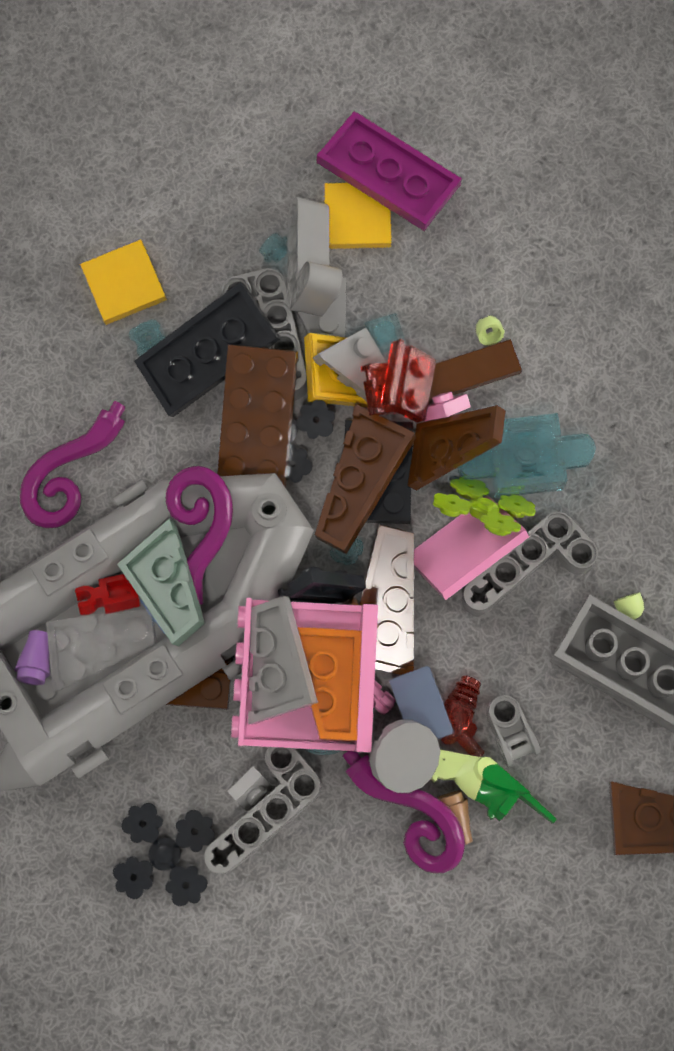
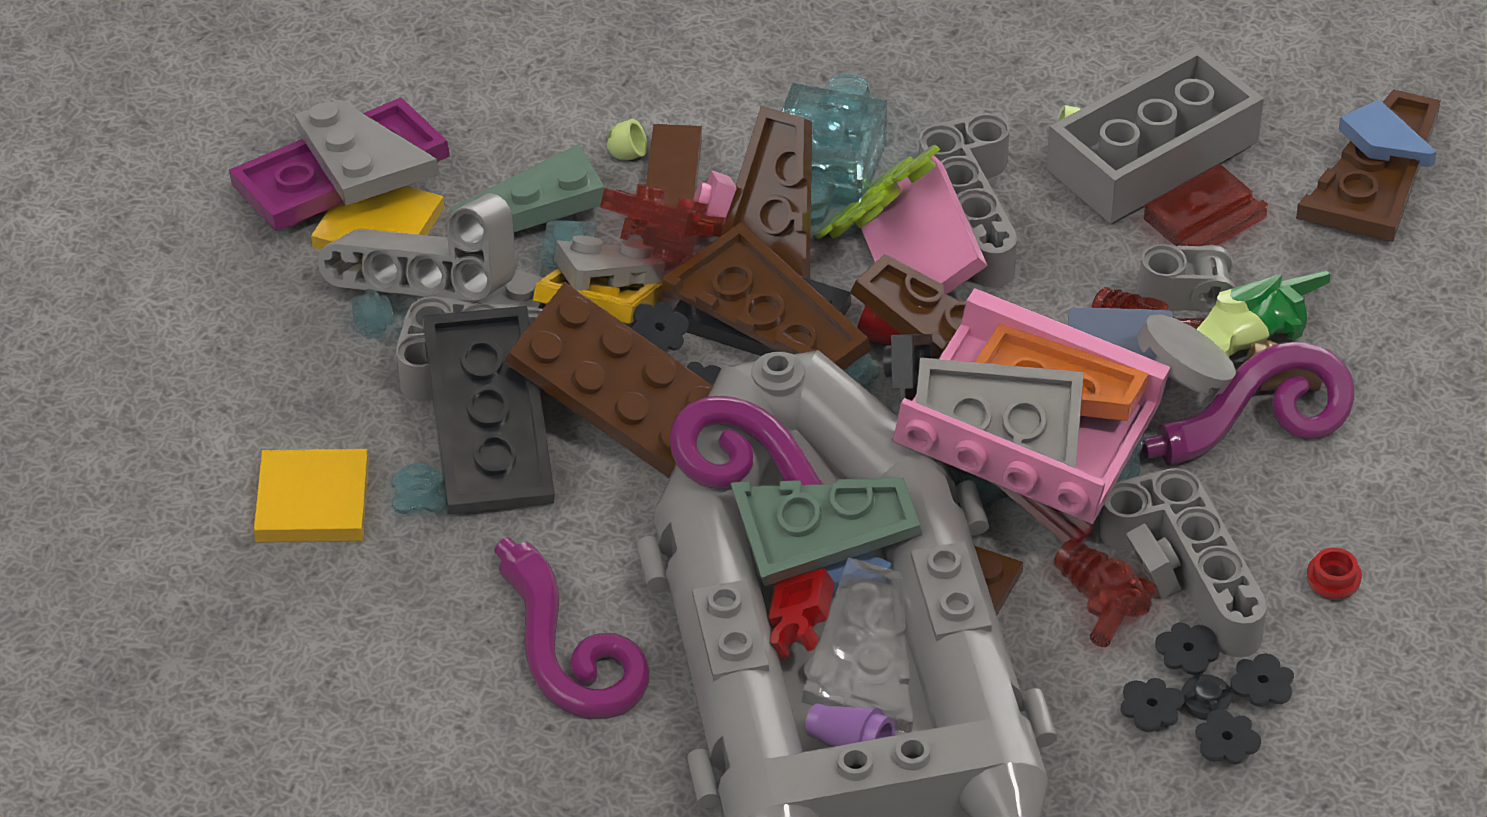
camera: 75 degrees left, 30 degrees down
(219, 772) = (1107, 584): none -> clear red piece
(279, 907) = (1338, 563): none -> red plate
(388, 177) = (361, 153): none -> light grey wing
(411, 296) = (549, 190): none -> sand green wing
(583, 720) = (1205, 209): none -> clear red plate

